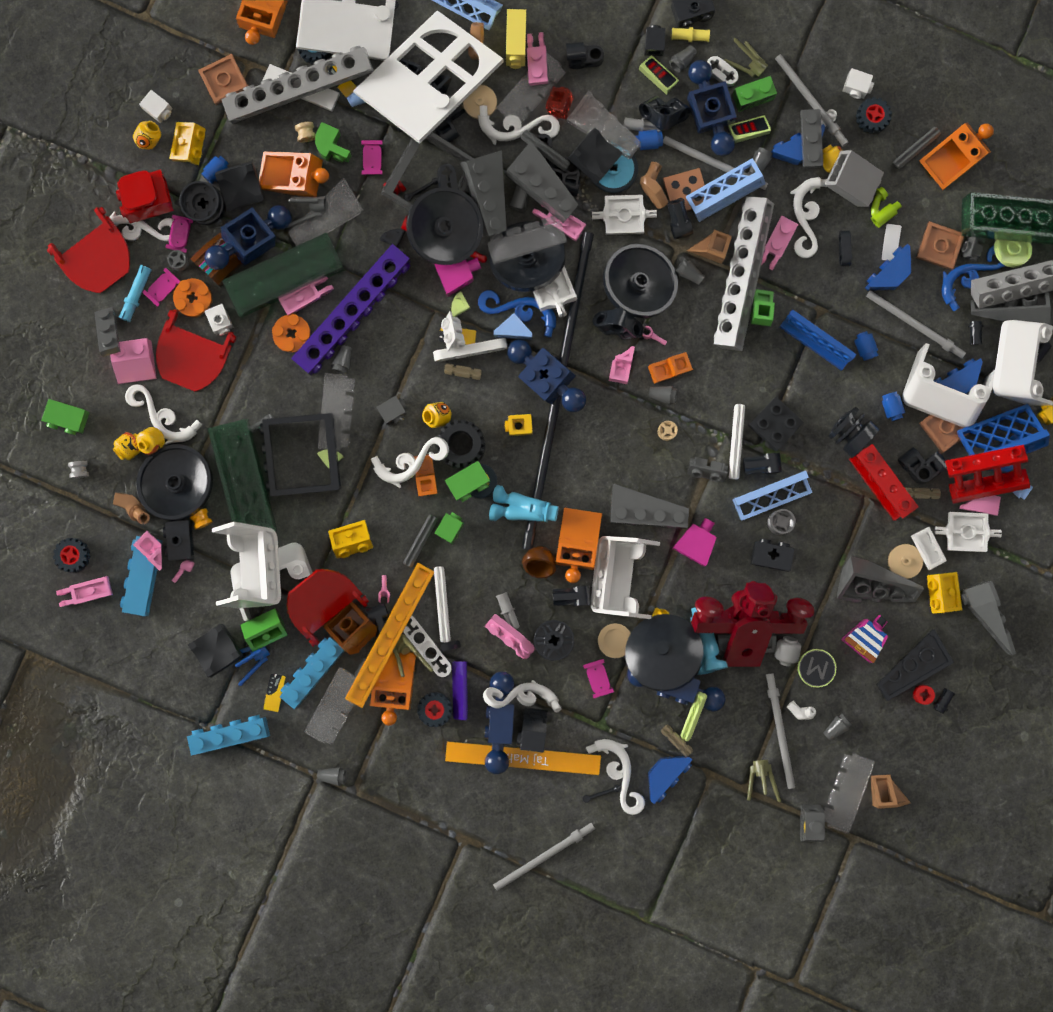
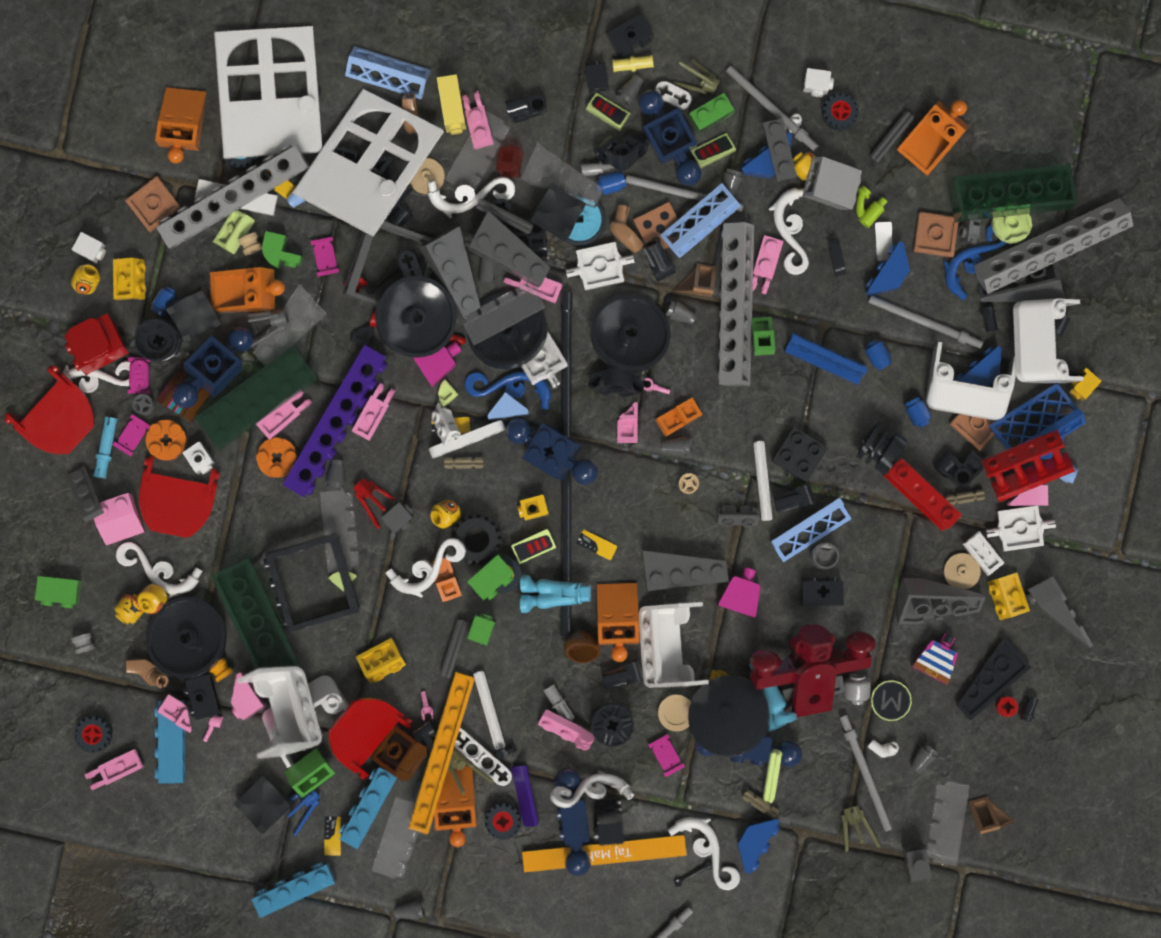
camera: 10 degrees left, 0 degrees up
(218, 551) = (245, 699): none -> bright pink slope
(294, 114) = (233, 229): none -> yellowish green slope
(366, 377) = (365, 490): none -> red plant
(387, 309) = (372, 413): none -> bright pink hinge
(512, 461) = (533, 546): none -> slope
(571, 471) = (596, 544): none -> yellow sticker

